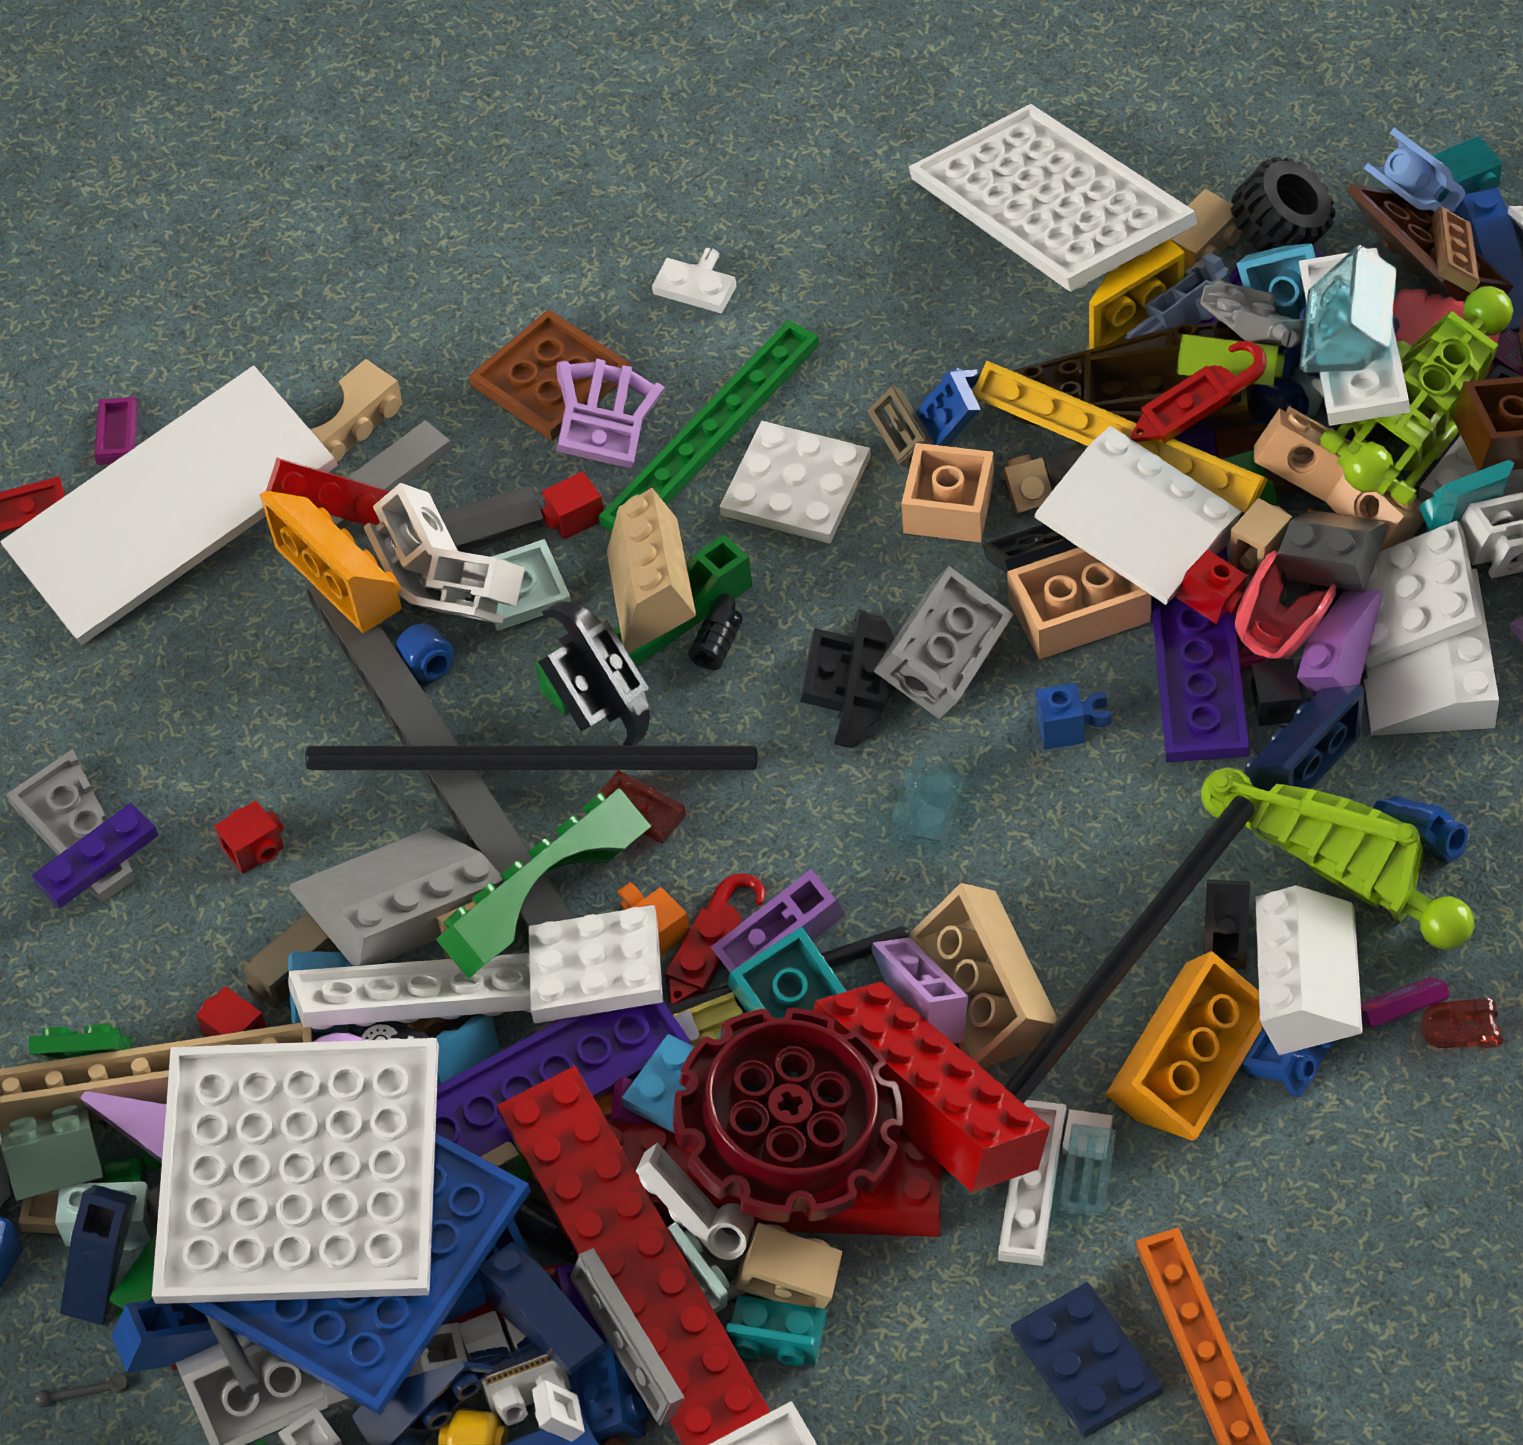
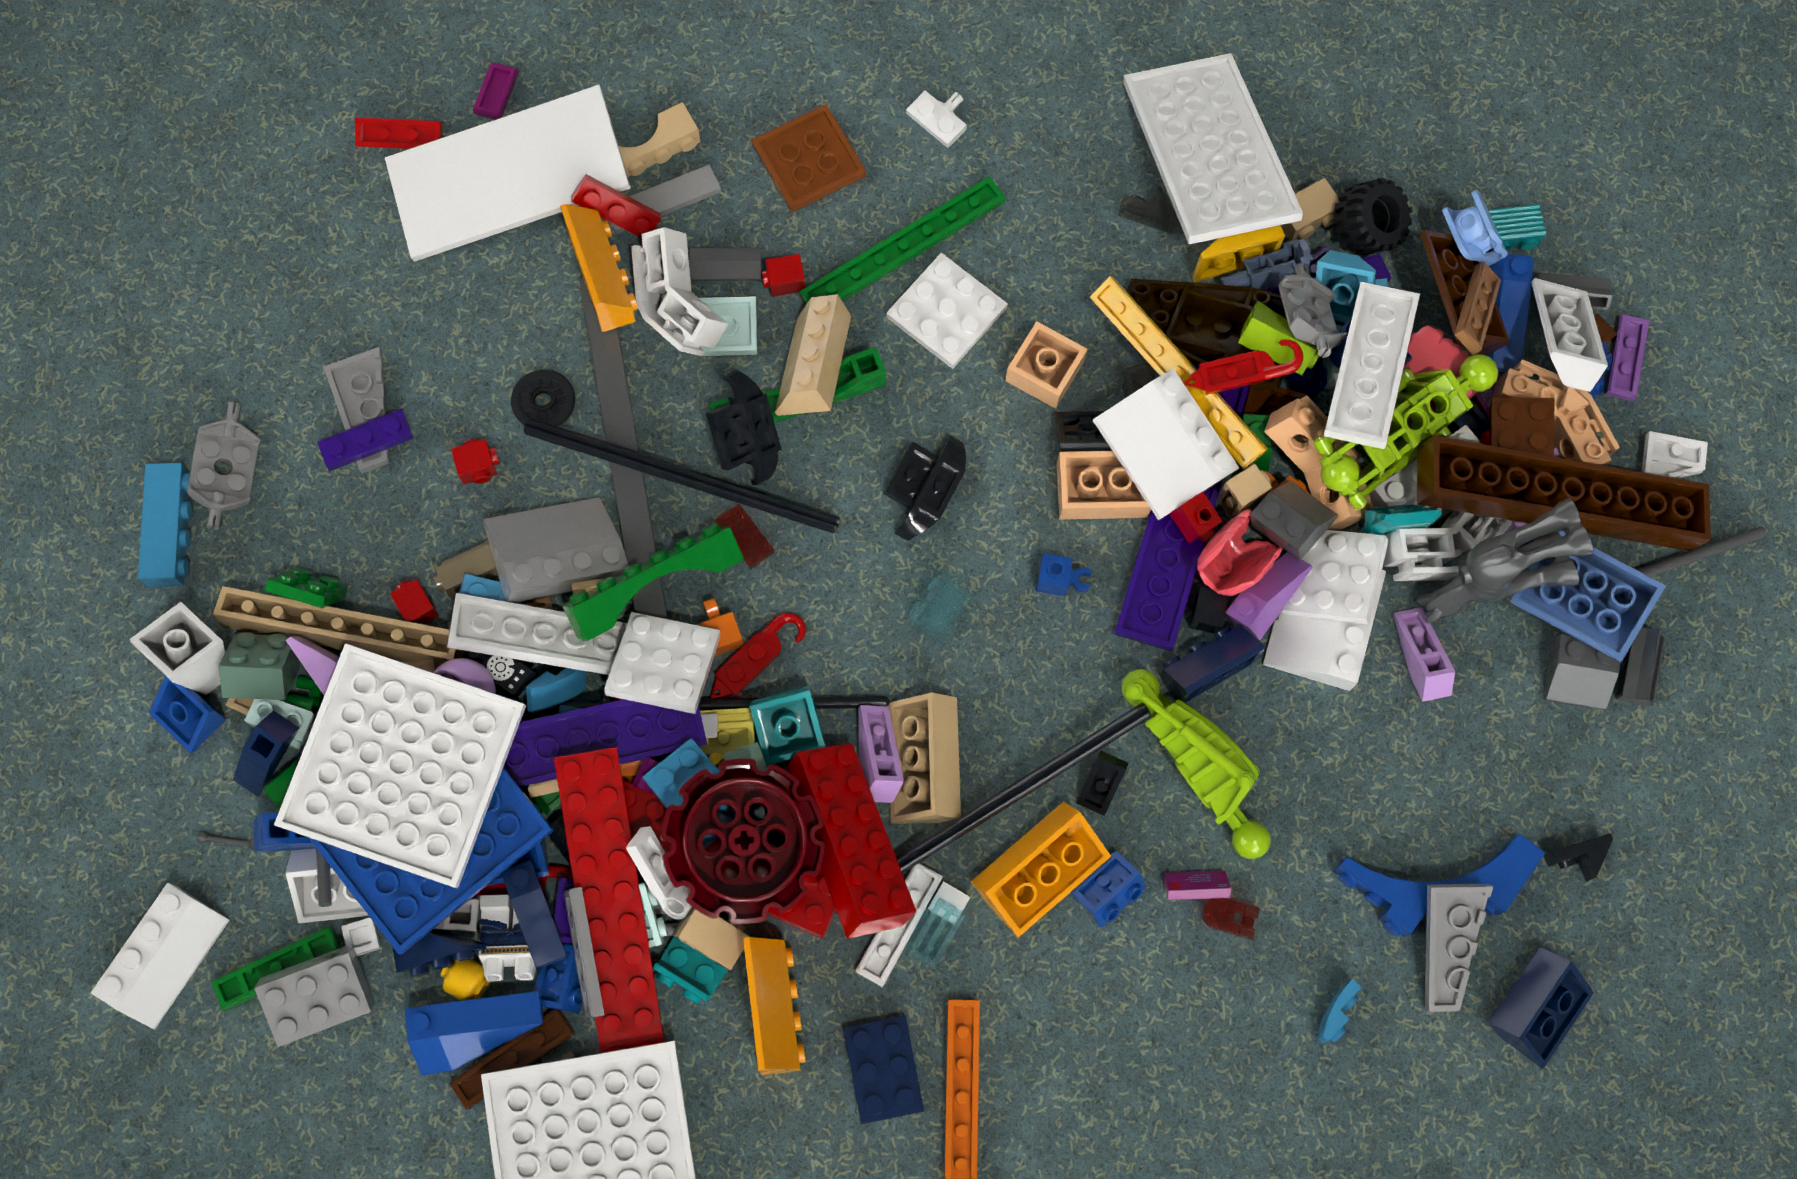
camera: 10 degrees right, 20 degrees up
(291, 731) = (542, 382): none -> black wheel
(425, 652) = (641, 358): blue head -> none
(558, 1411) = (520, 991): white plate -> none
(597, 431) = (822, 221): lavender plate -> none
(716, 633) = (846, 417): black hinge -> none
(800, 904) = (801, 670): medium lavender slope -> none
(904, 1321) = (772, 1005): none -> light orange slope
(922, 436) = (1039, 292): dark tan tile -> none
(943, 642) = (995, 489): light grey piece -> none
(950, 406) = (1071, 298): blue bracket -> none
(1012, 297) = (1155, 214): none -> clear smoke slope
(1026, 483) = (1105, 375): tan bracket -> none
(1307, 968) = (1141, 844): white slope -> none
(1349, 314) = (1373, 353): clear light blue slope -> none
(1436, 828) = (1265, 755): blue rock -> none

